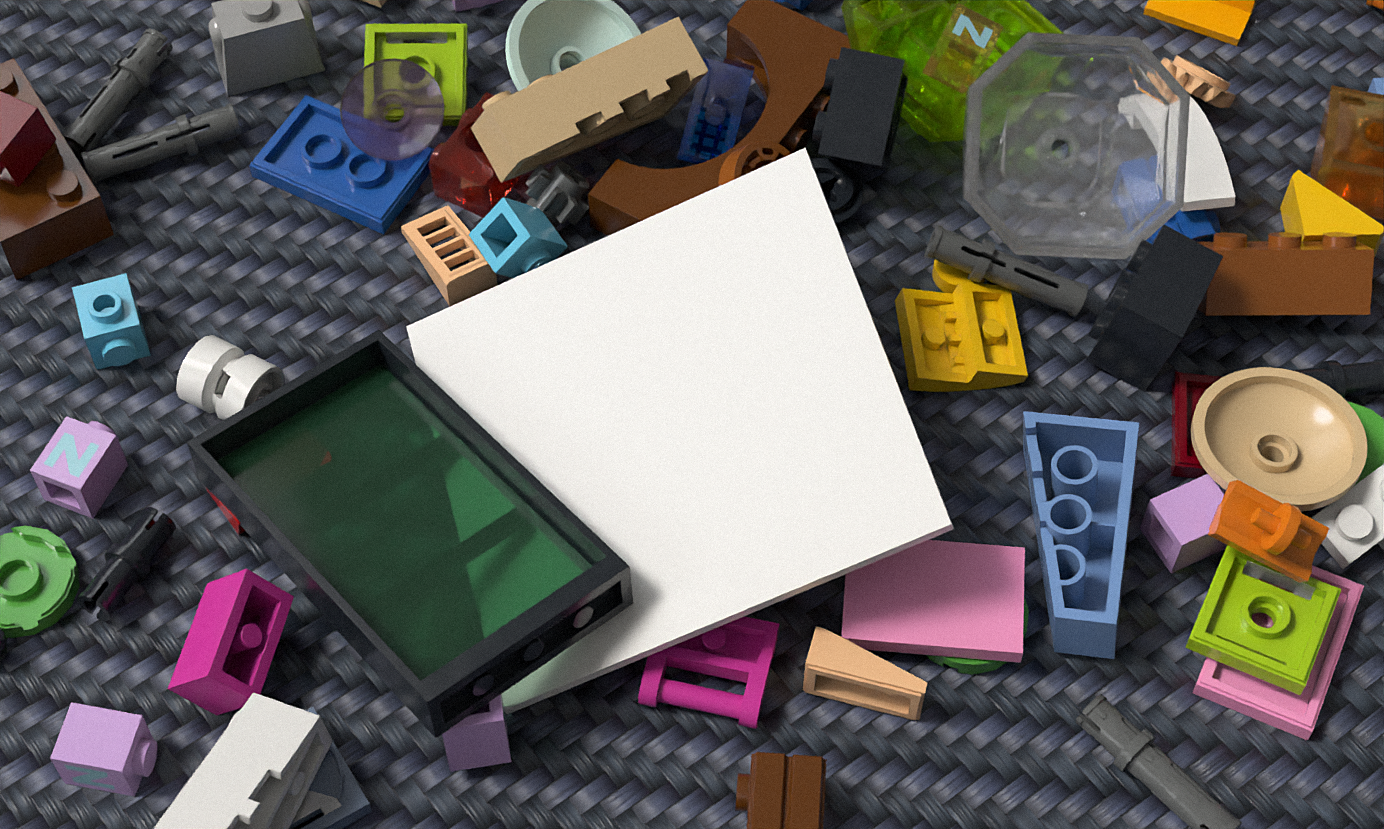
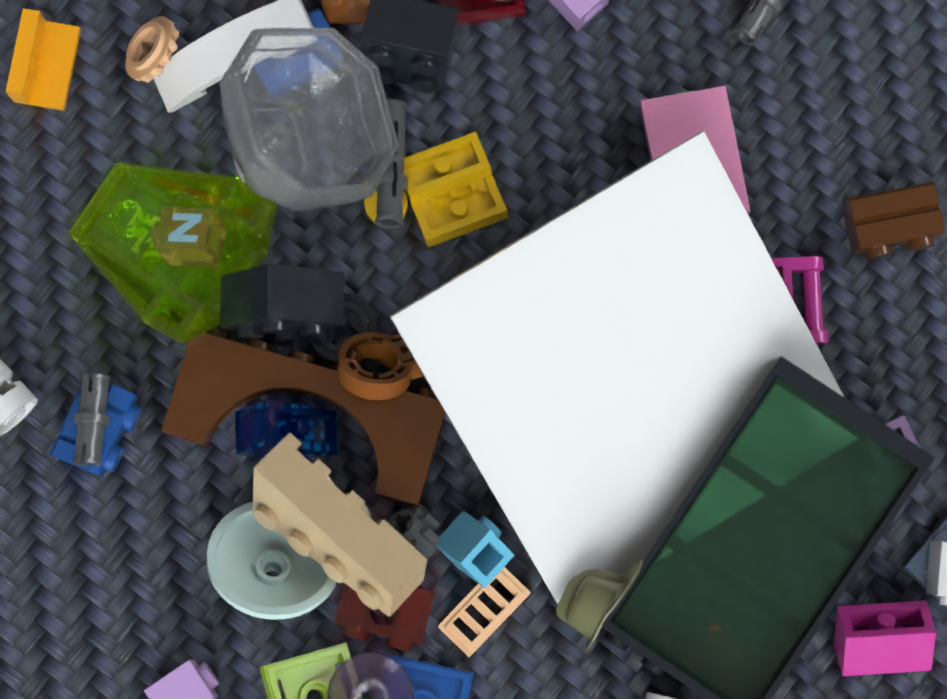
camera: 110 degrees left, 25 degrees up
(411, 325) = (592, 598): none -> olive piece
(860, 678) = (769, 199): light nougat slope -> none
(1081, 513) = (601, 64): medium blue wedge -> none

